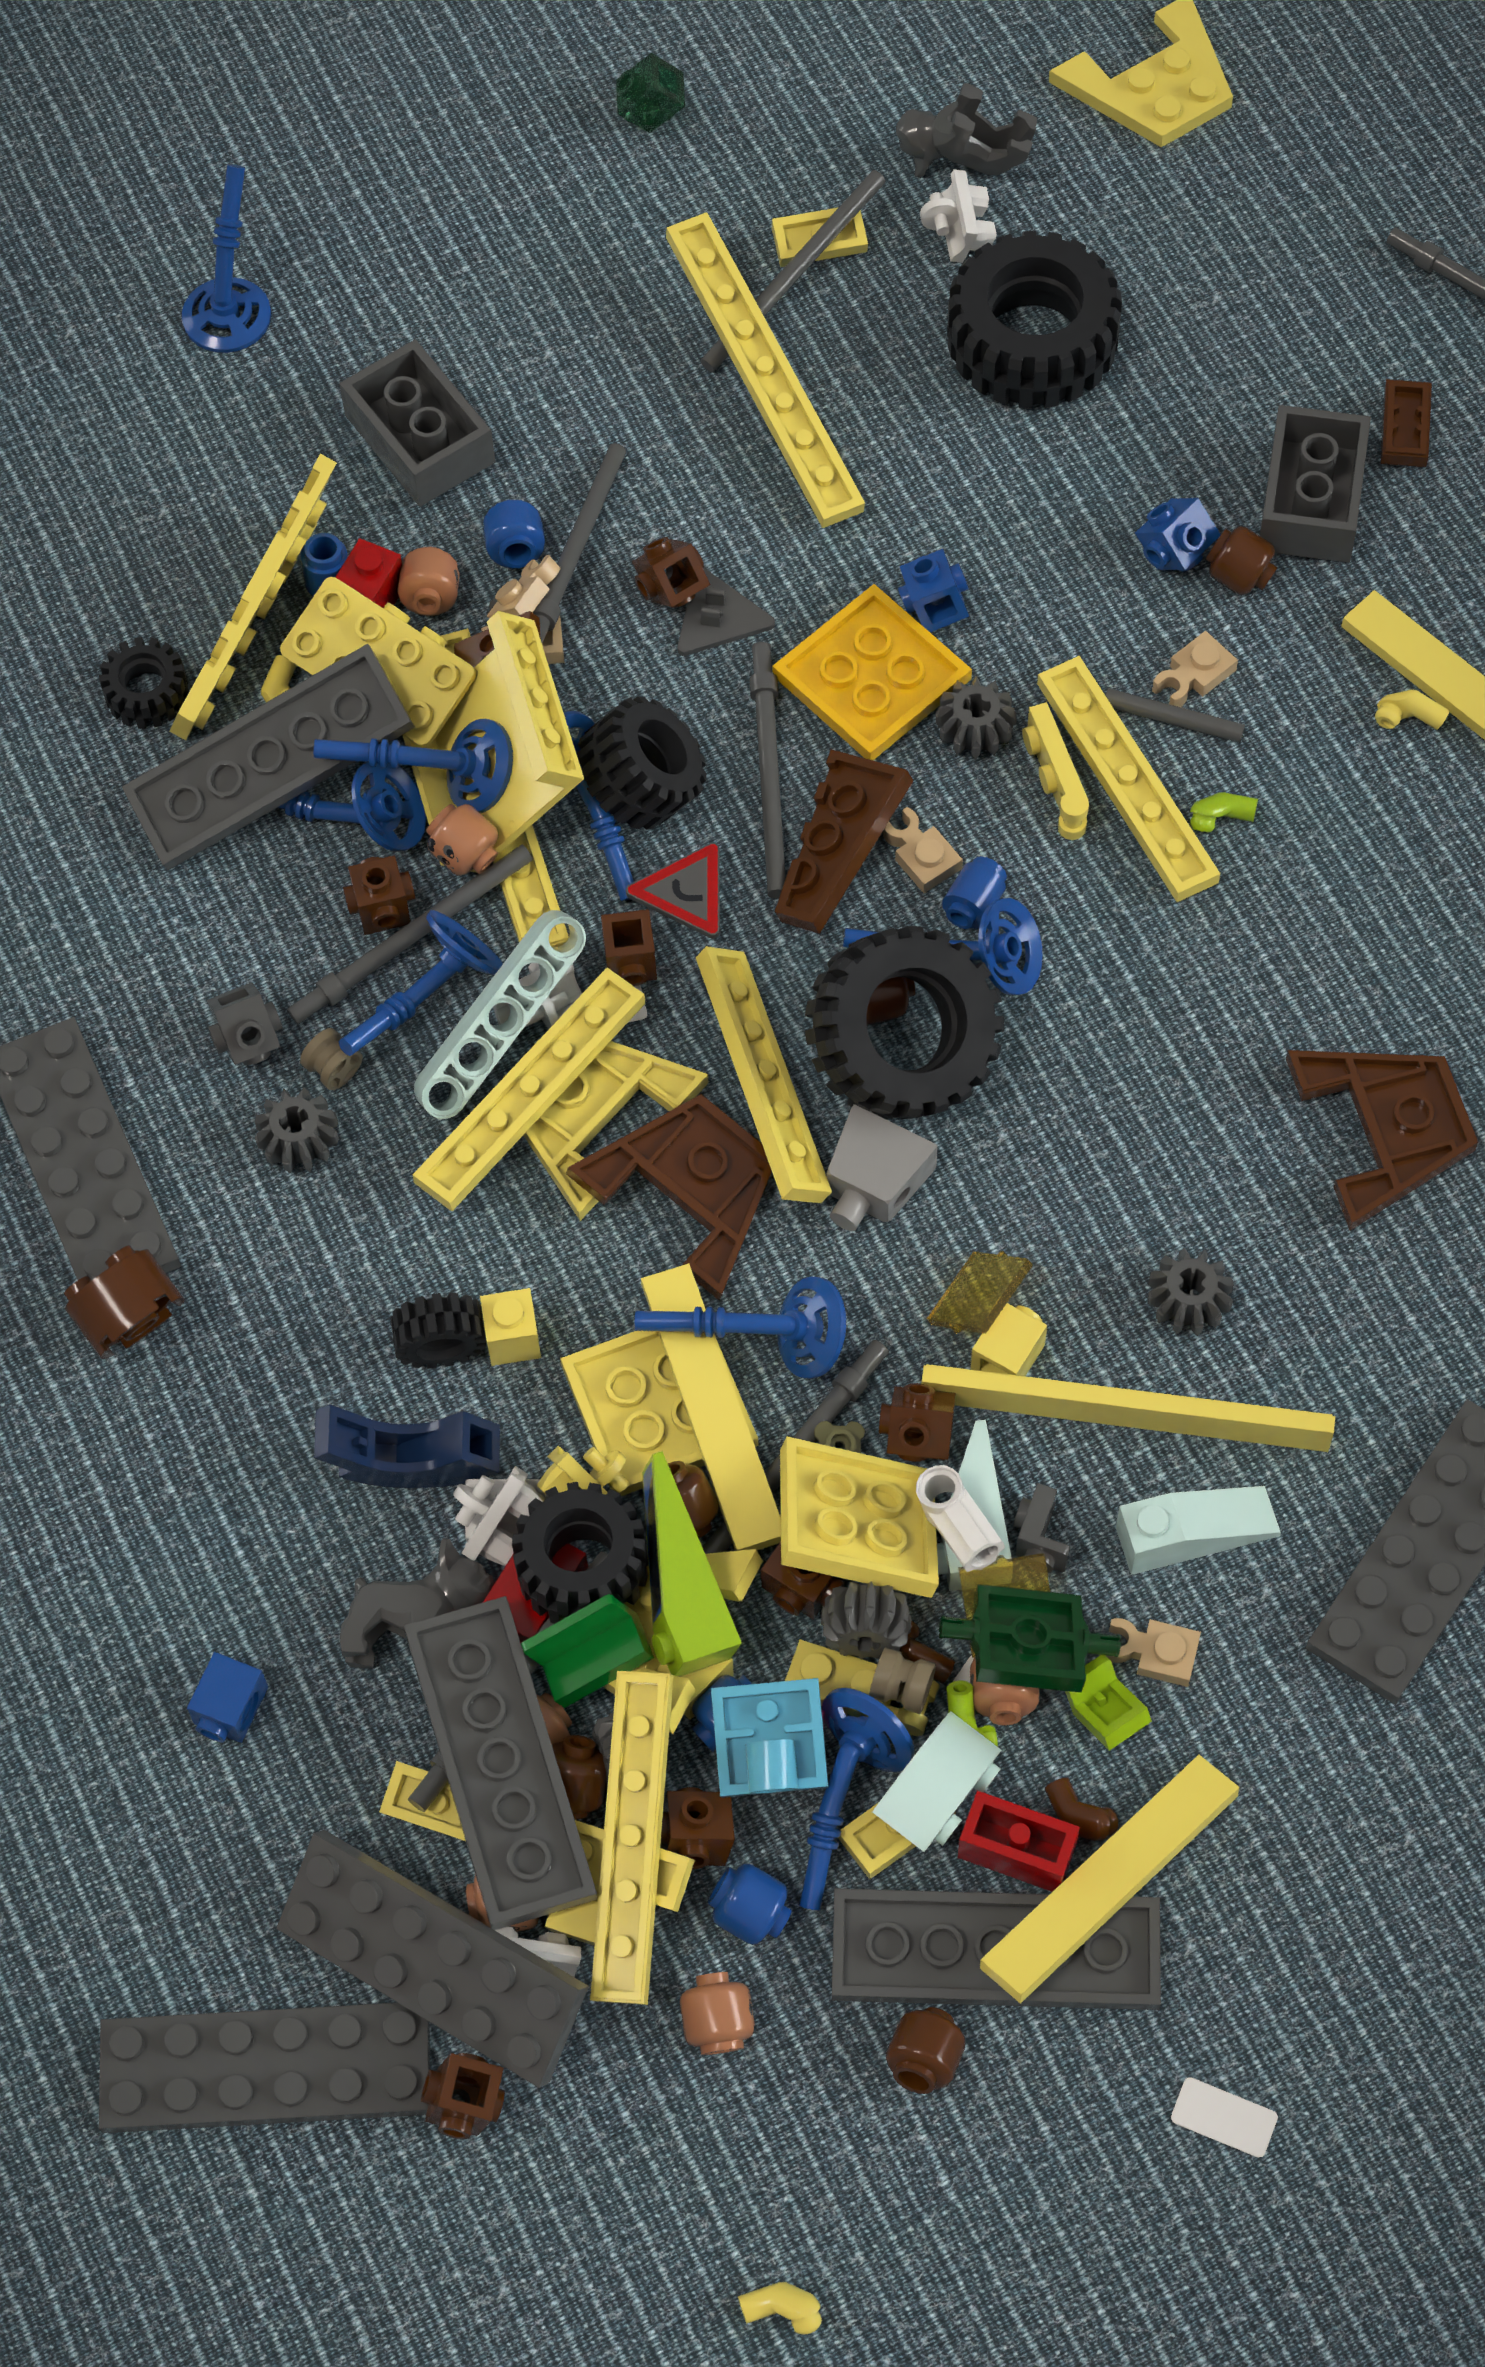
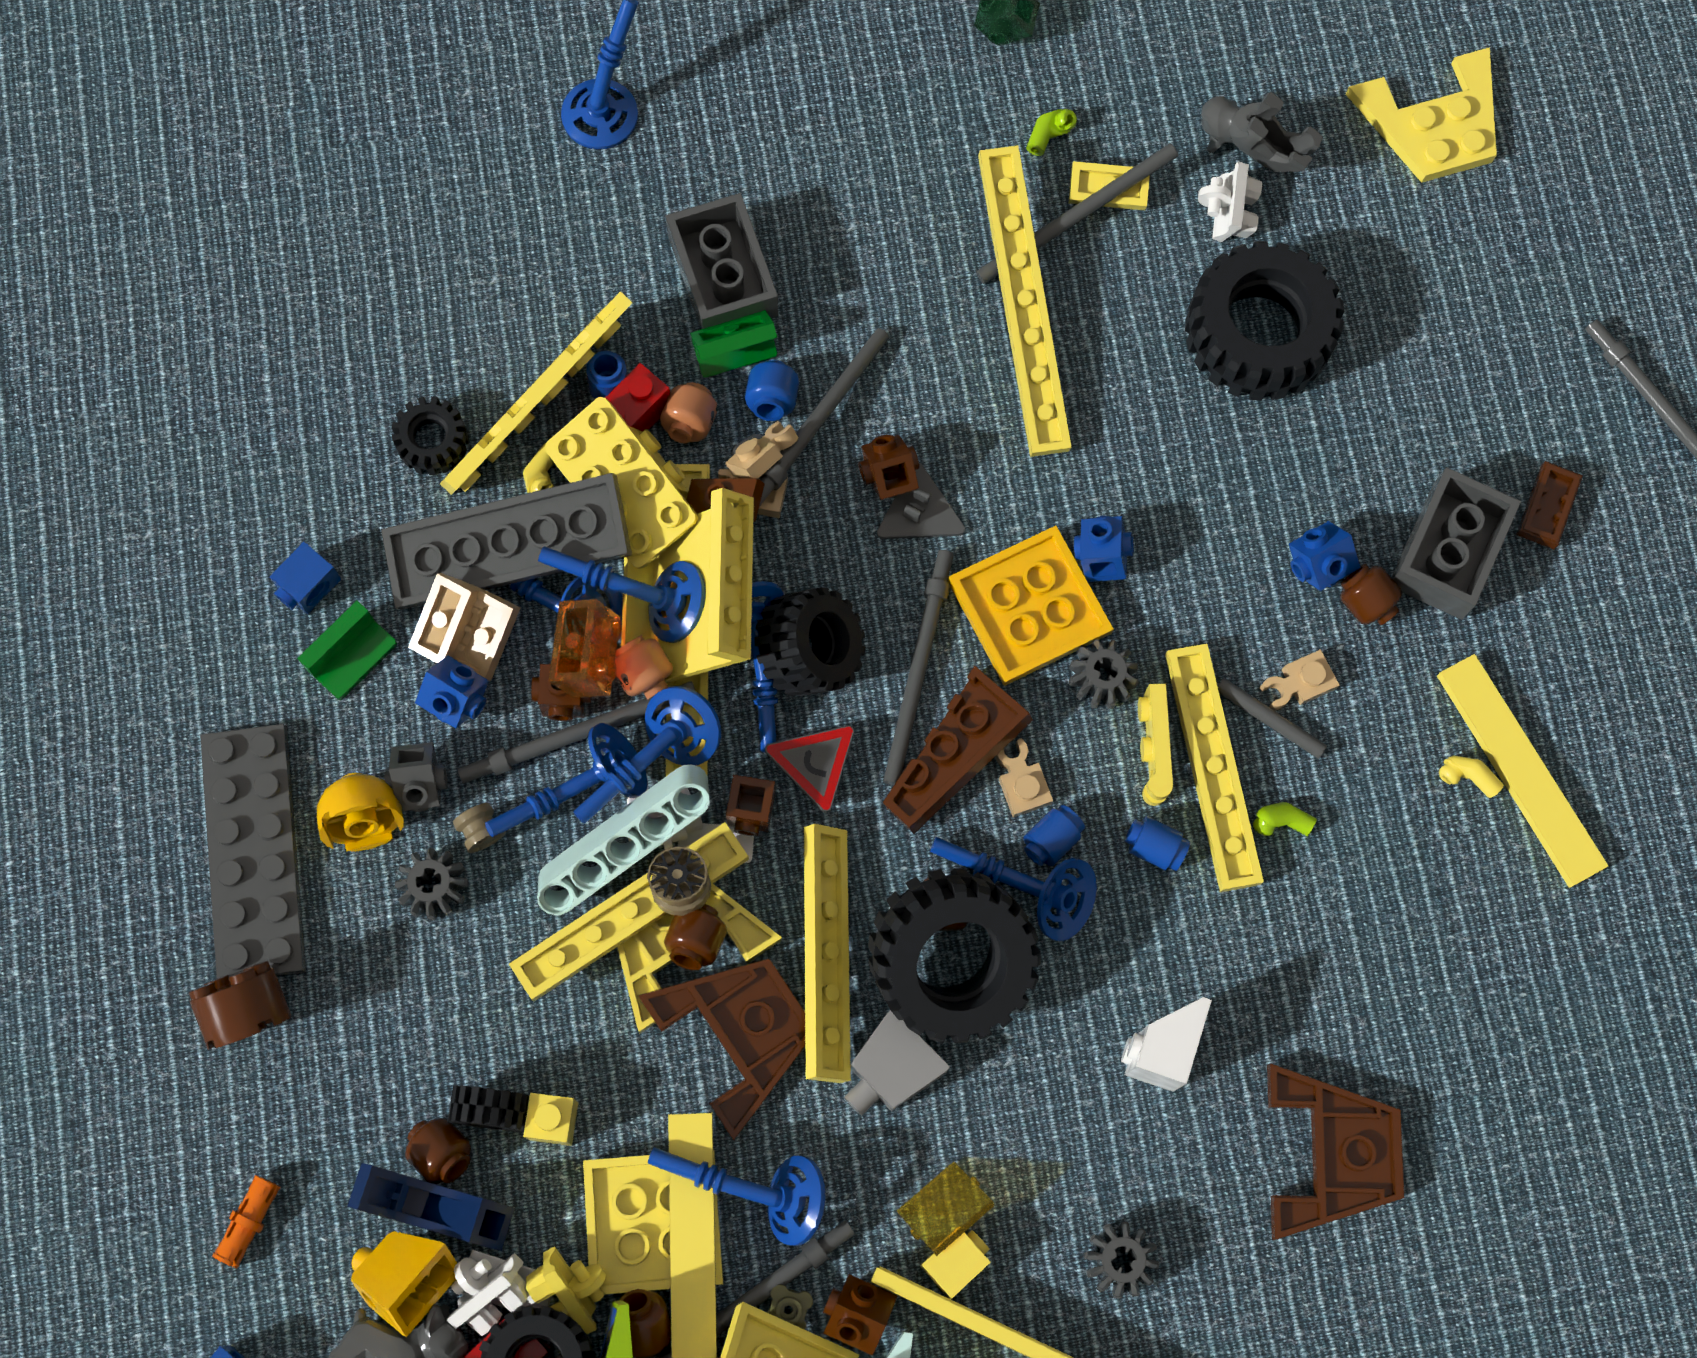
camera: 10 degrees right, 10 degrees up
(50, 862) = (304, 579): none -> blue brick
(121, 924) = (347, 651): none -> green panel
(192, 1077) = (358, 813): none -> yellow cylinder
(199, 1532) = (246, 1222): none -> orange pin
(248, 859) = (464, 624): none -> tan slope
(257, 928) = (452, 692): none -> blue brick
(393, 1393) = (438, 1151): none -> reddish brown head
(396, 826) = (585, 648): none -> clear orange brick
(399, 1524) = (403, 1277): none -> yellow torso
(456, 498) = (734, 343): none -> green panel
(506, 901) = (670, 735): none -> blue dish
(576, 1033) = (679, 881): none -> dark tan wheel
(612, 1091) = (695, 938): none -> reddish brown head
(734, 195) = (1048, 127): none -> lime arm
(1091, 869) = (1157, 843): none -> blue brick
(1166, 1061) = (1166, 1048): none -> white slope

